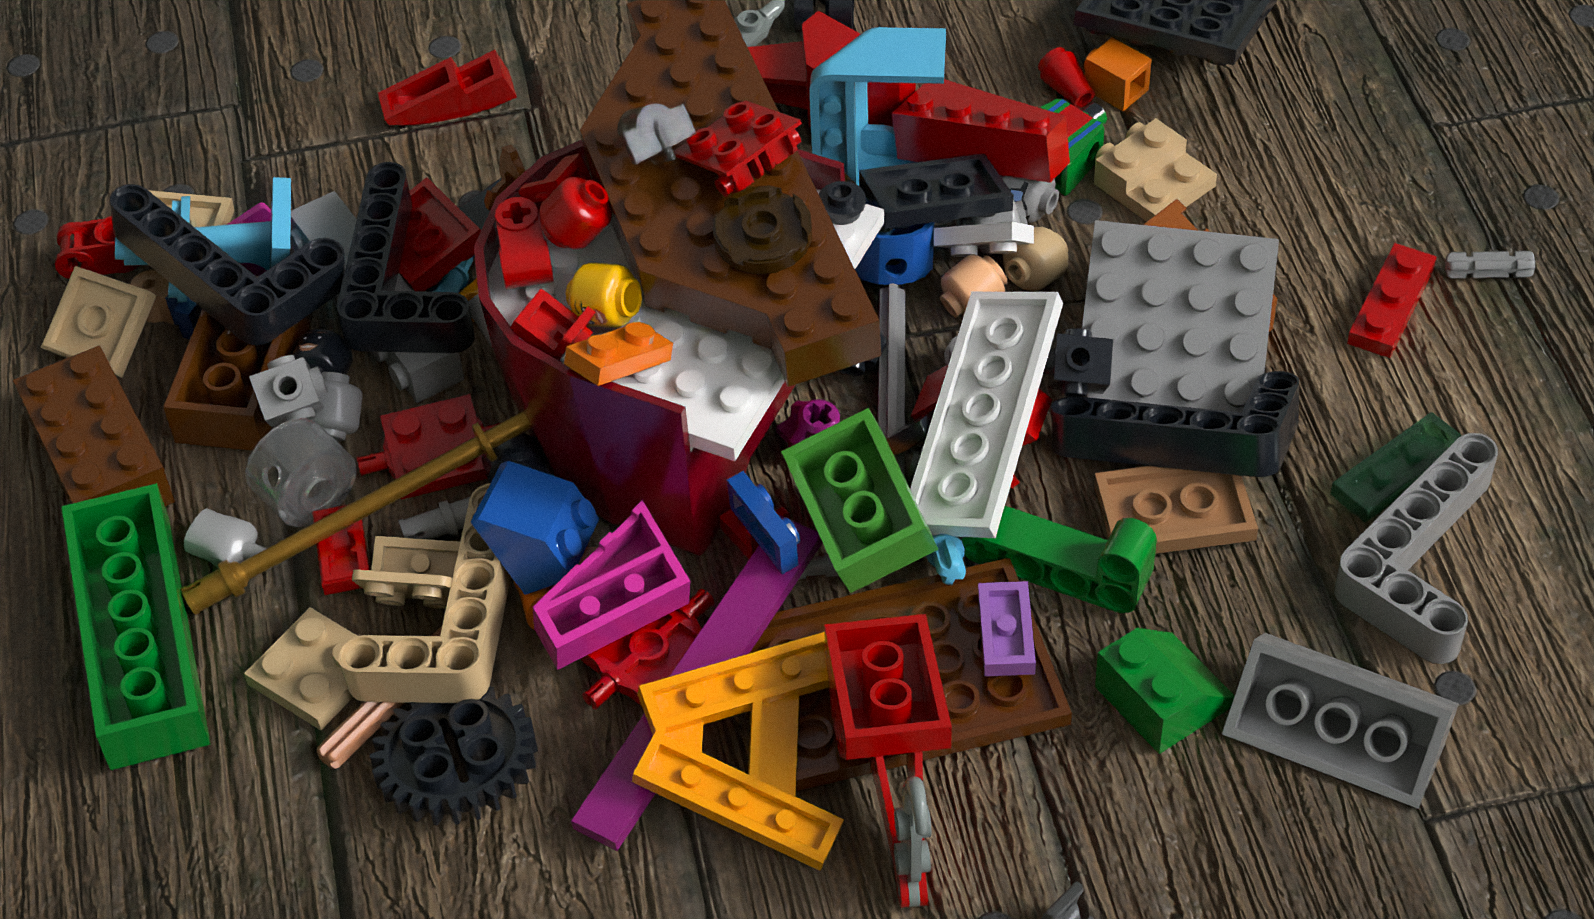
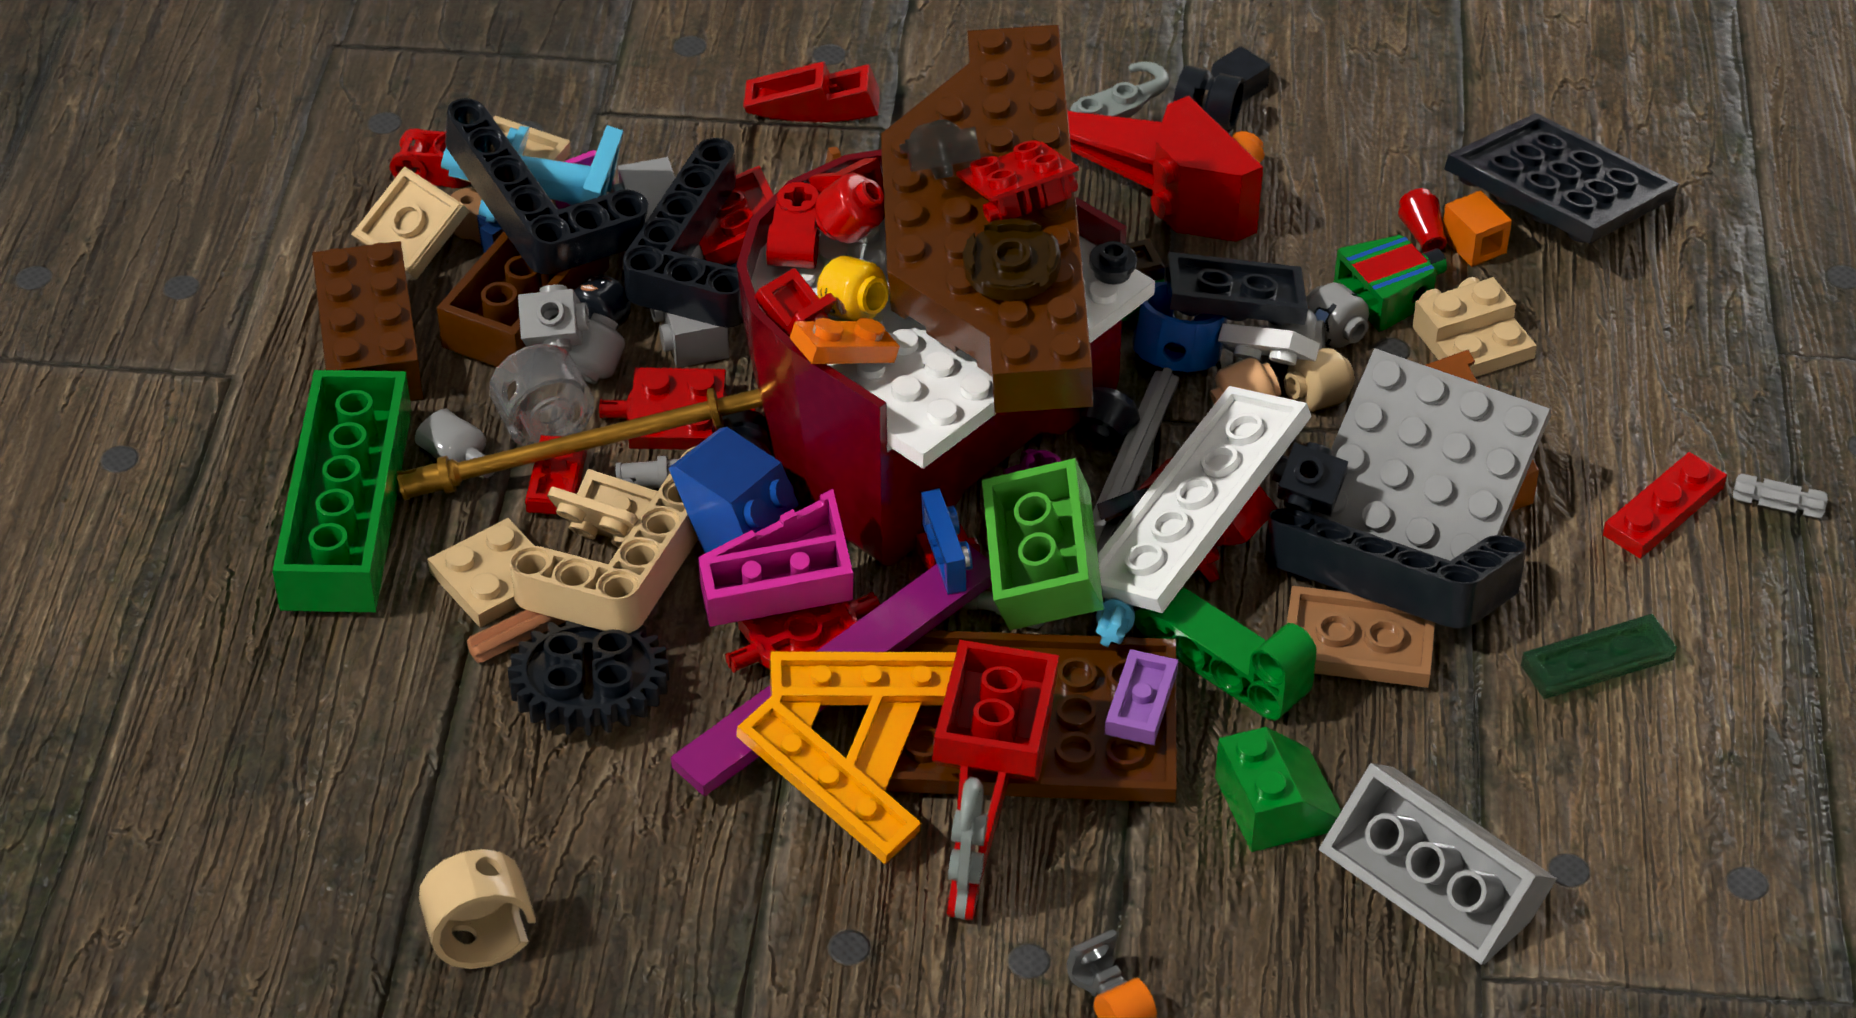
camera: 15 degrees right, 5 degrees down
(841, 93) = (1172, 182): medium azure windscreen -> none
(966, 121) = (1294, 231): red wedge -> none
(1375, 567) = (1533, 739): light grey beam -> none

